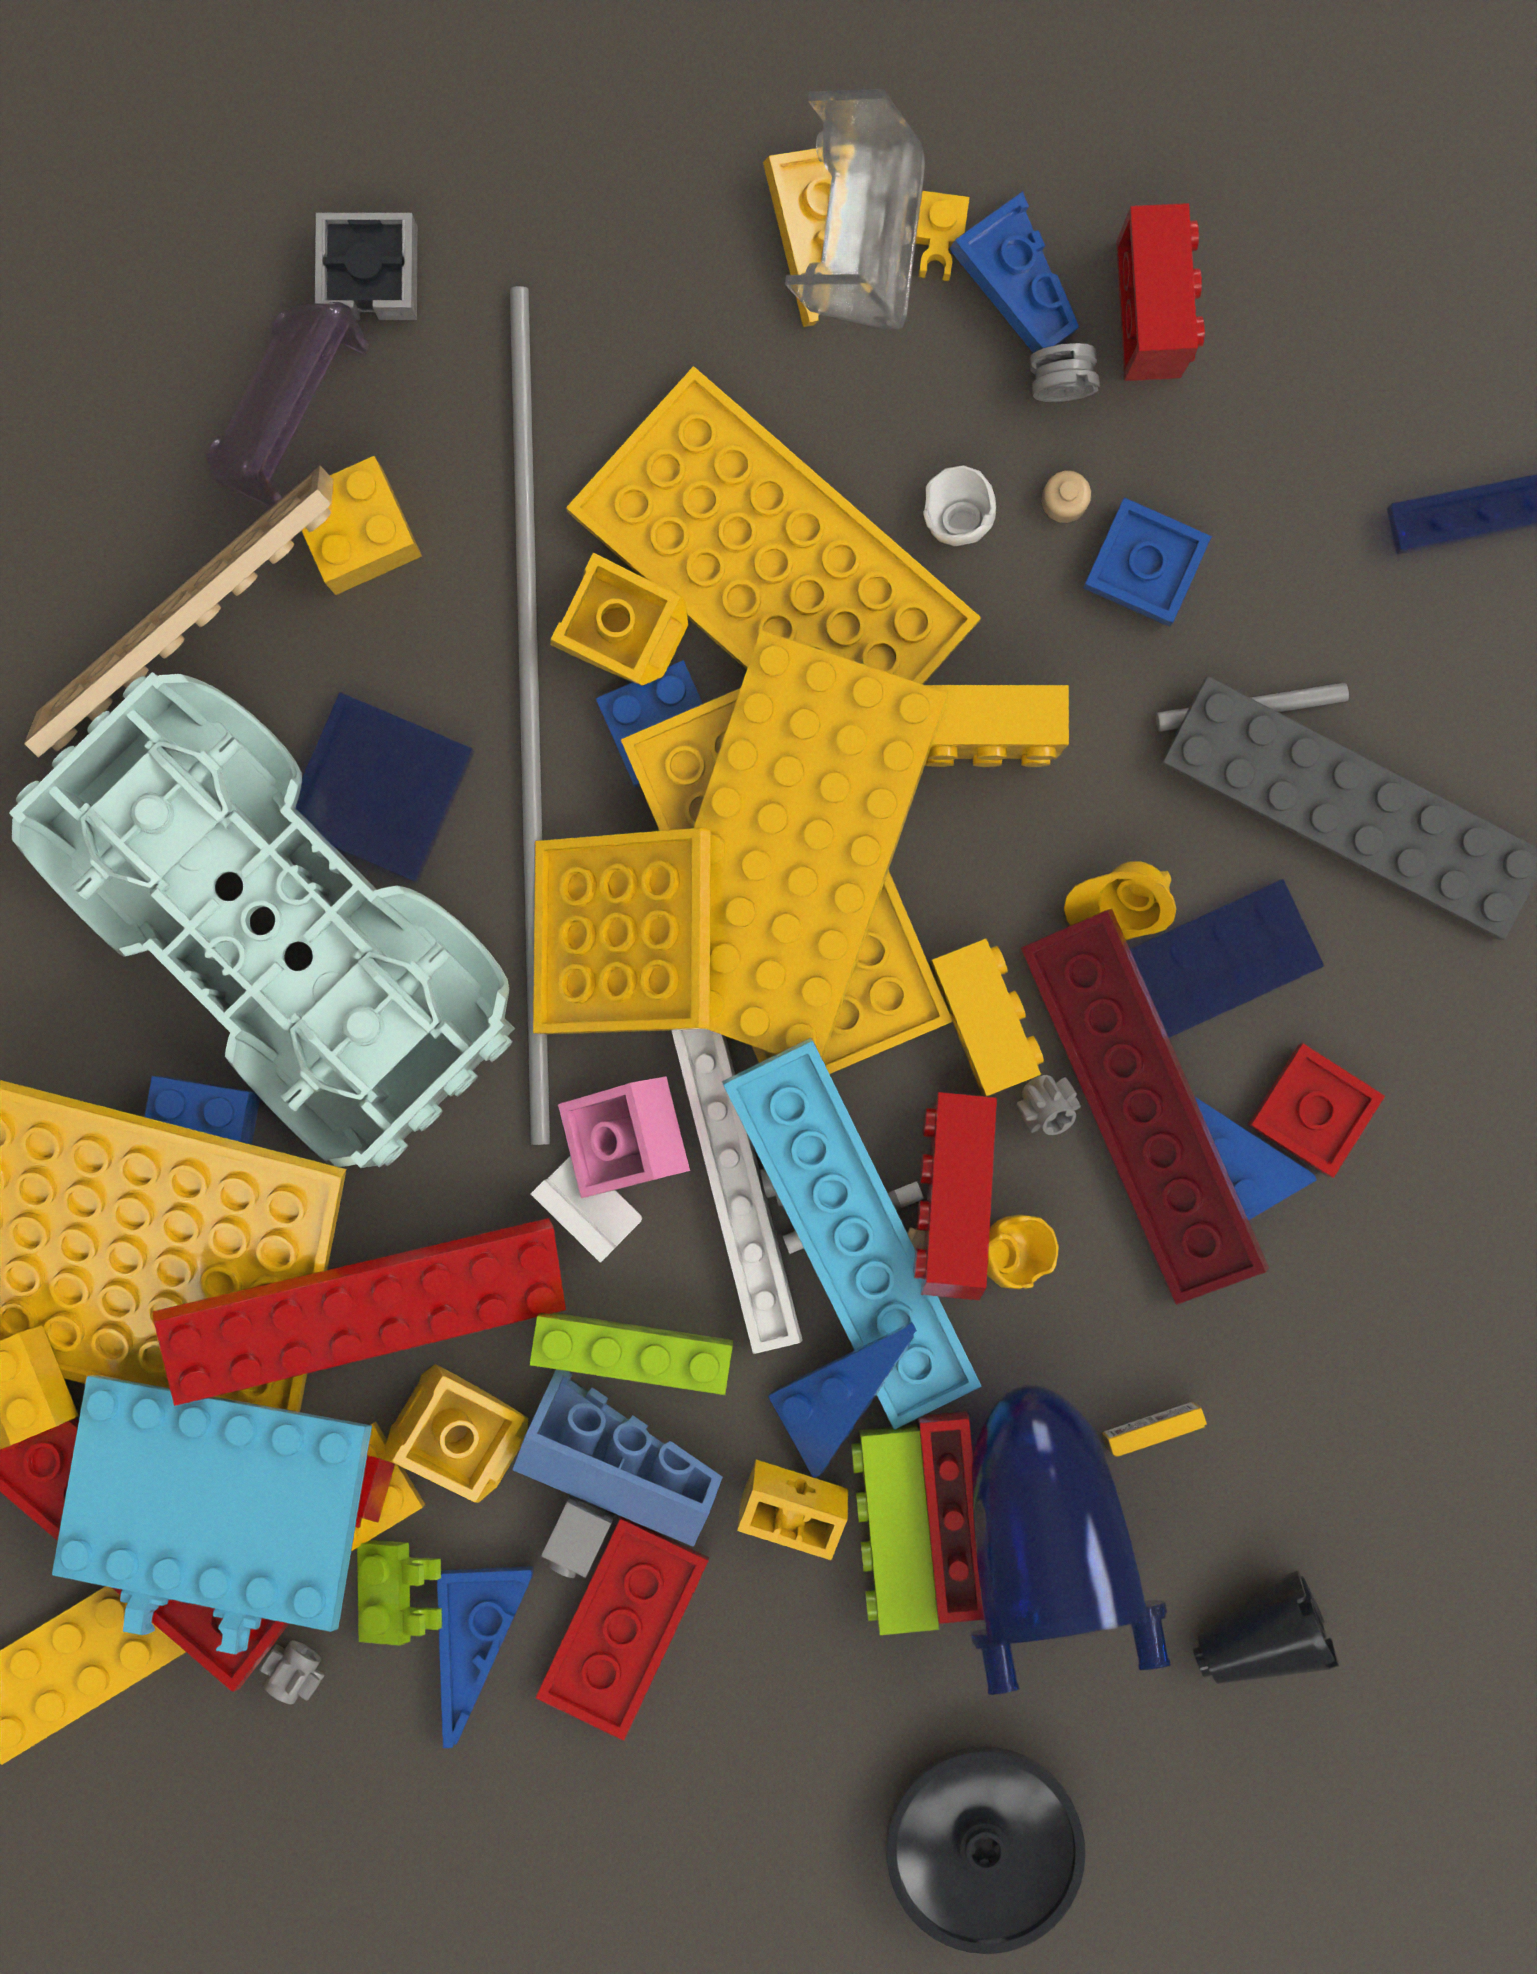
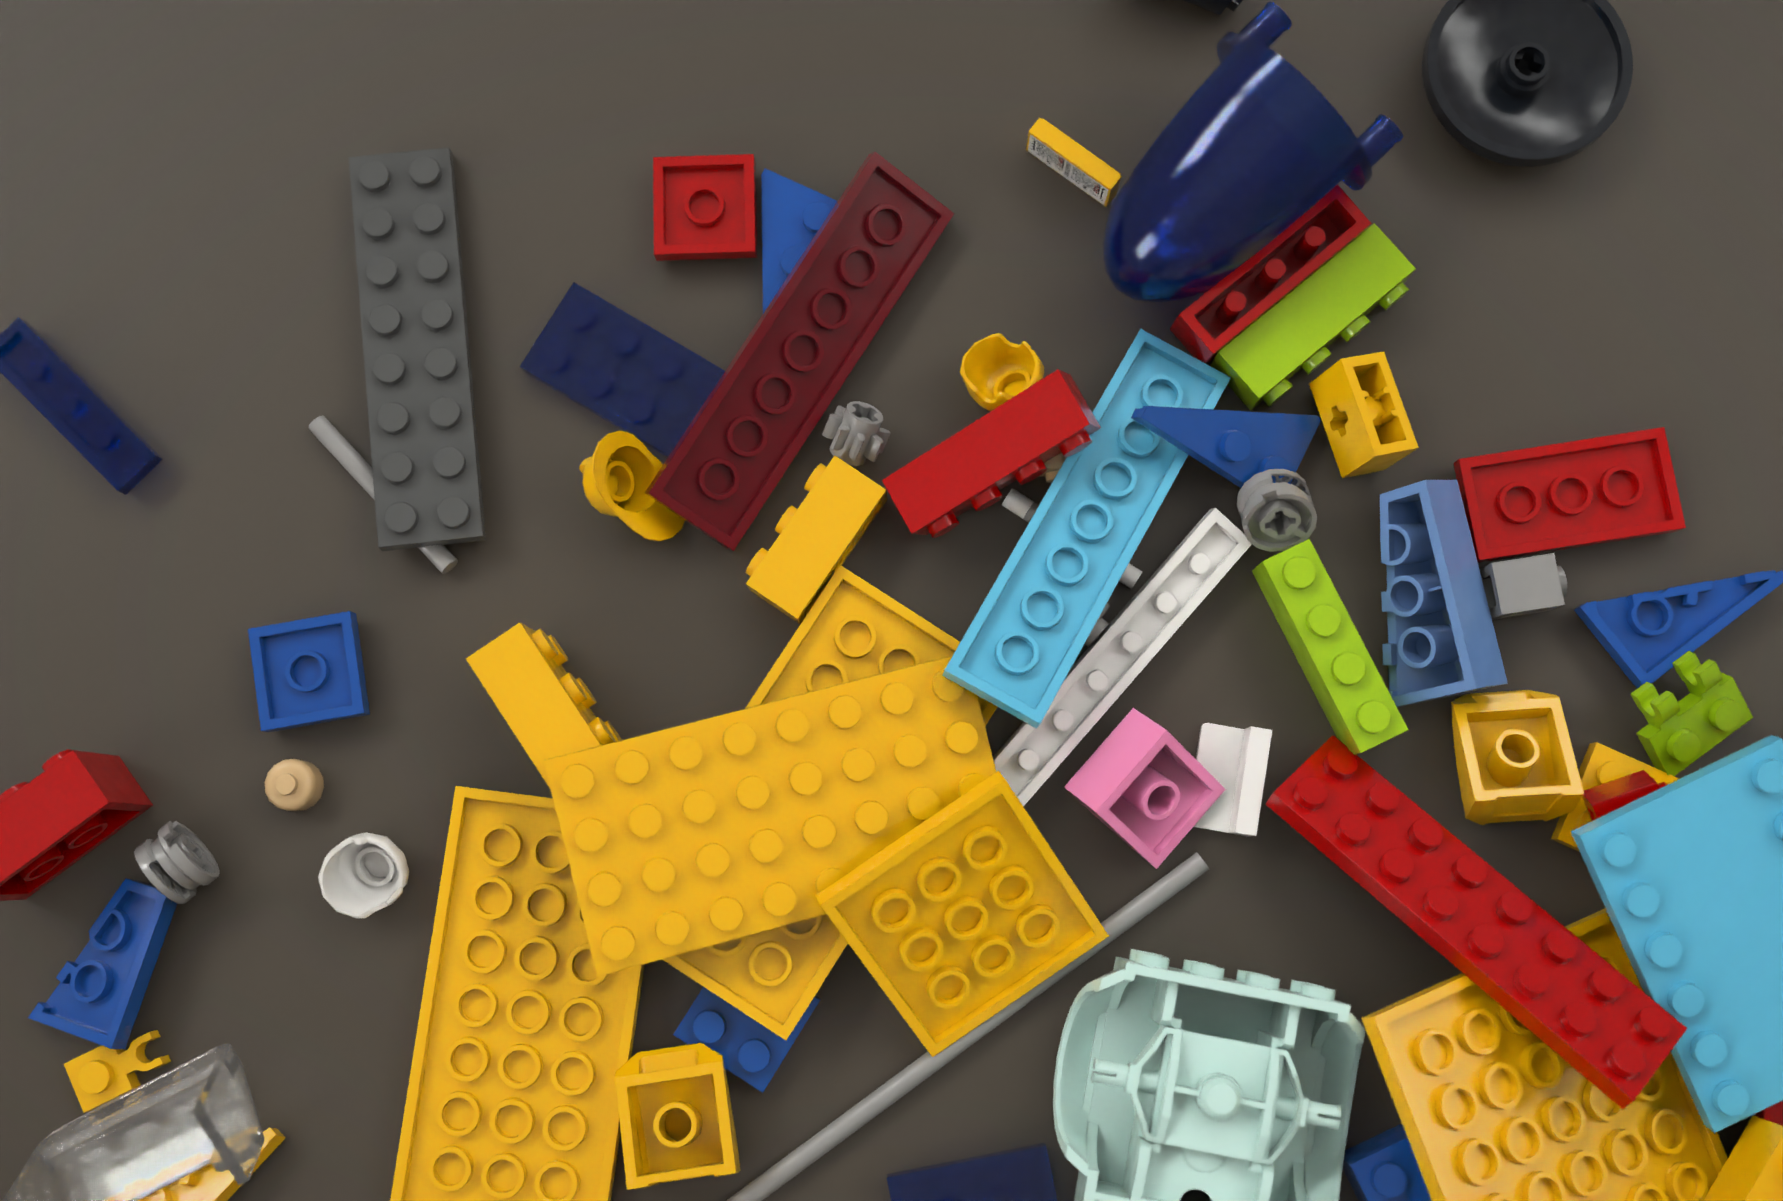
camera: 115 degrees left, 5 degrees down
(761, 1387) = (1260, 500): none -> light grey wheel

